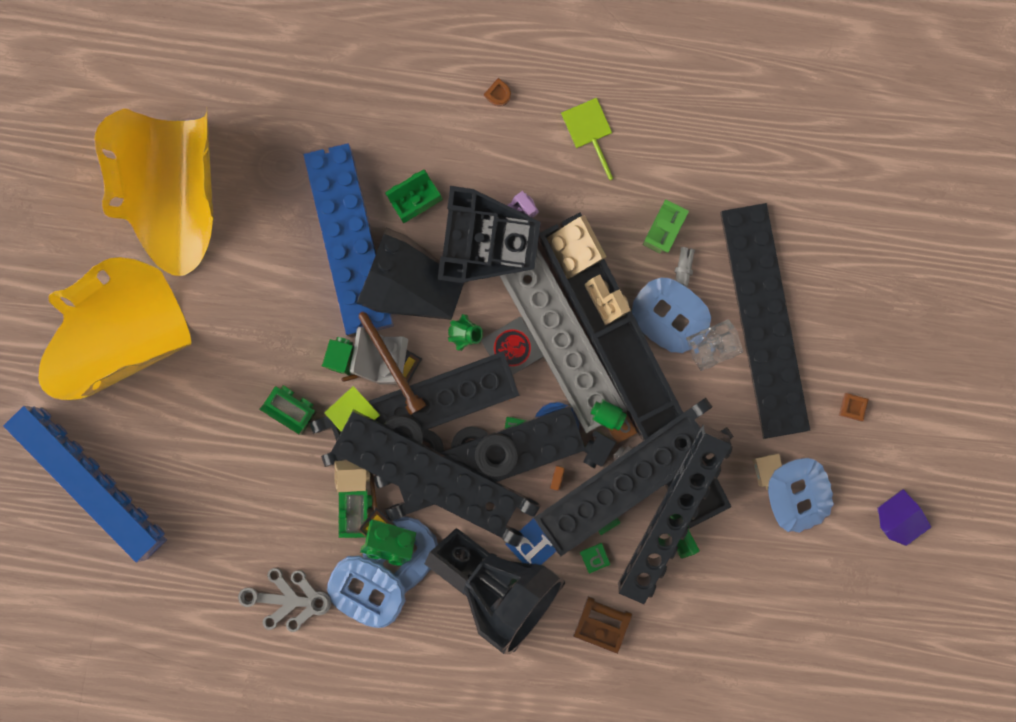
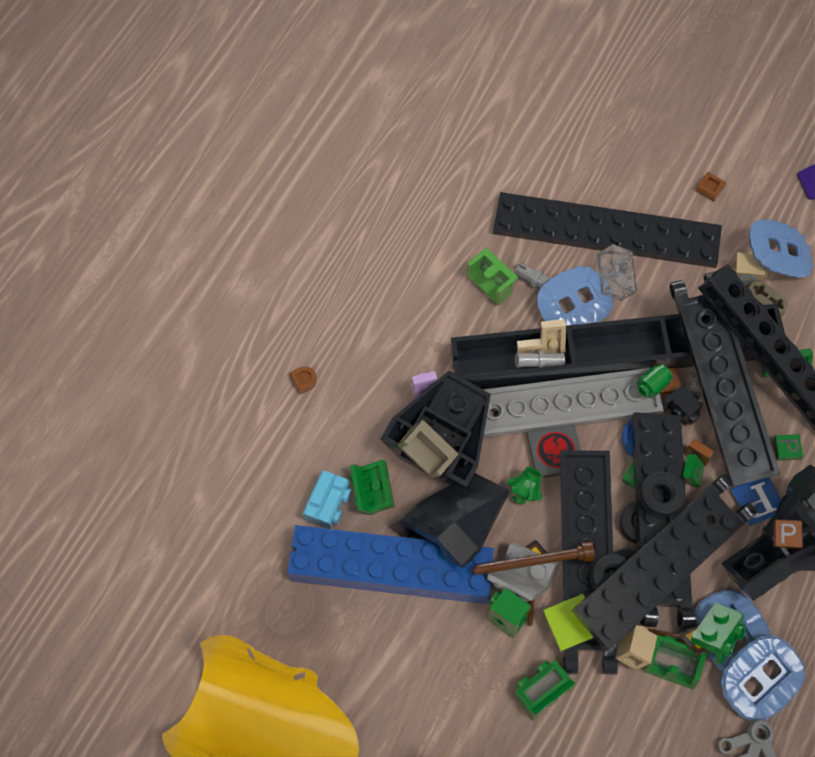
camera: 65 degrees left, 20 degrees down
(387, 162) = (327, 500): none -> medium azure brick
(455, 231) = (427, 449): none -> dark tan panel
(484, 575) = (787, 534): none -> dark orange tile
(537, 478) = (693, 470): none -> green tile
(576, 247) = (482, 351): tan plate -> none
(586, 125) = (368, 314): lime piece -> none
(590, 302) = (539, 359): none -> light grey pin
(749, 499) = (769, 296): none -> dark tan beam

